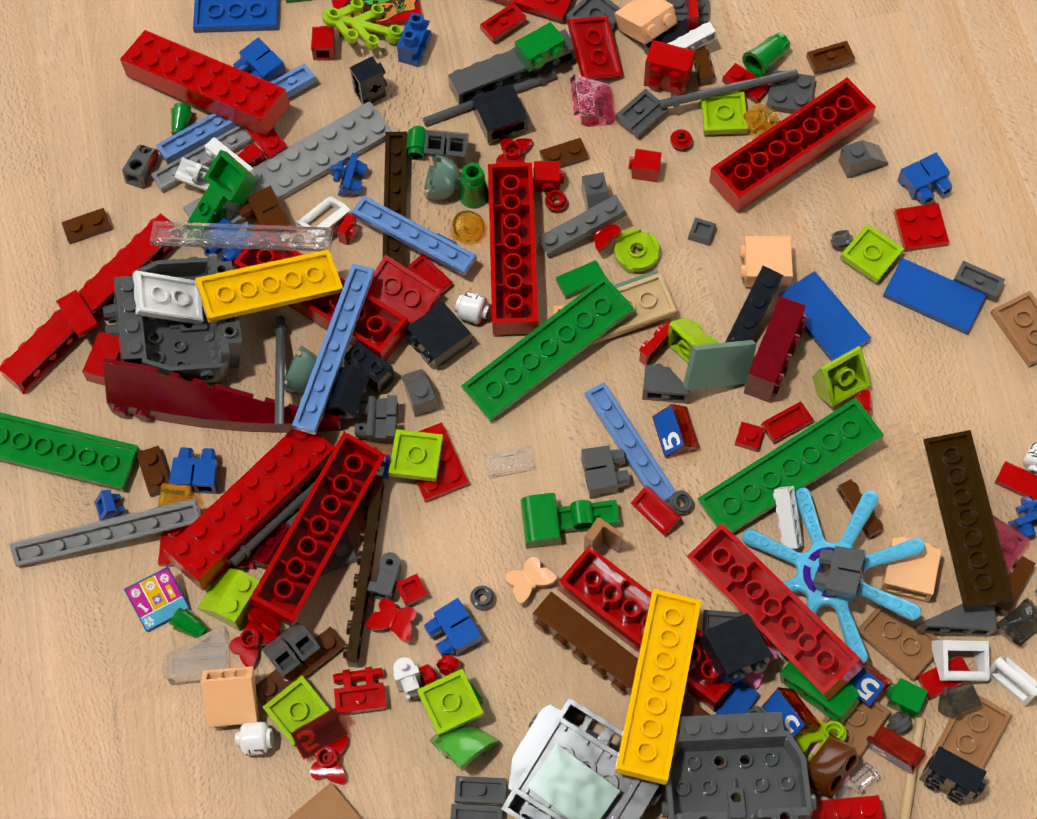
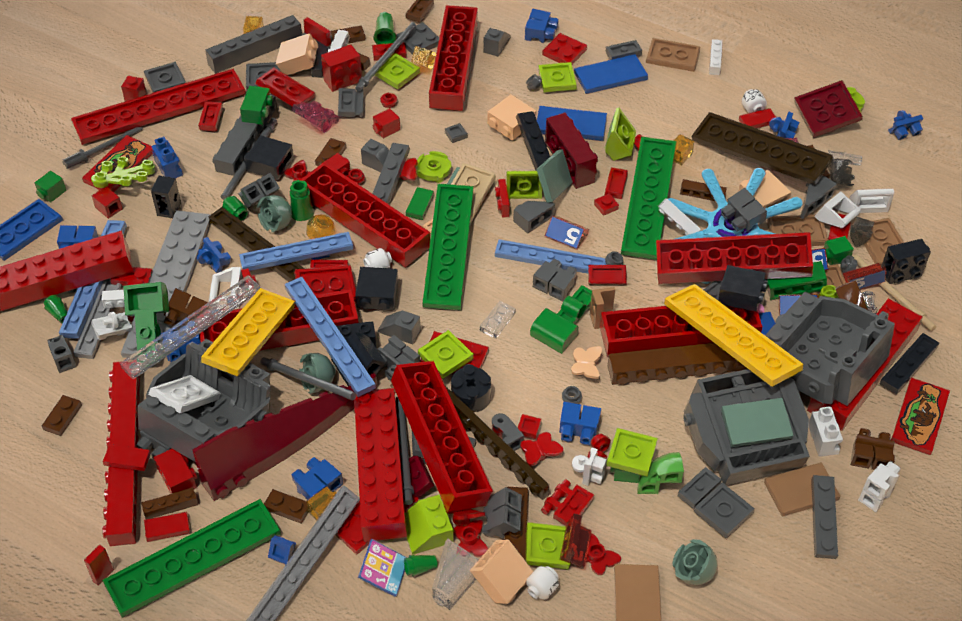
camera: 50 degrees left, 15 degrees down
(55, 401) = (166, 526): none -> red tile
(76, 383) = (169, 503): none -> reddish brown piece
(399, 496) = (472, 387): none -> black brick
(730, 32) = (356, 34): none -> reddish brown plate
(894, 445) = (683, 149): none -> clear yellow brick

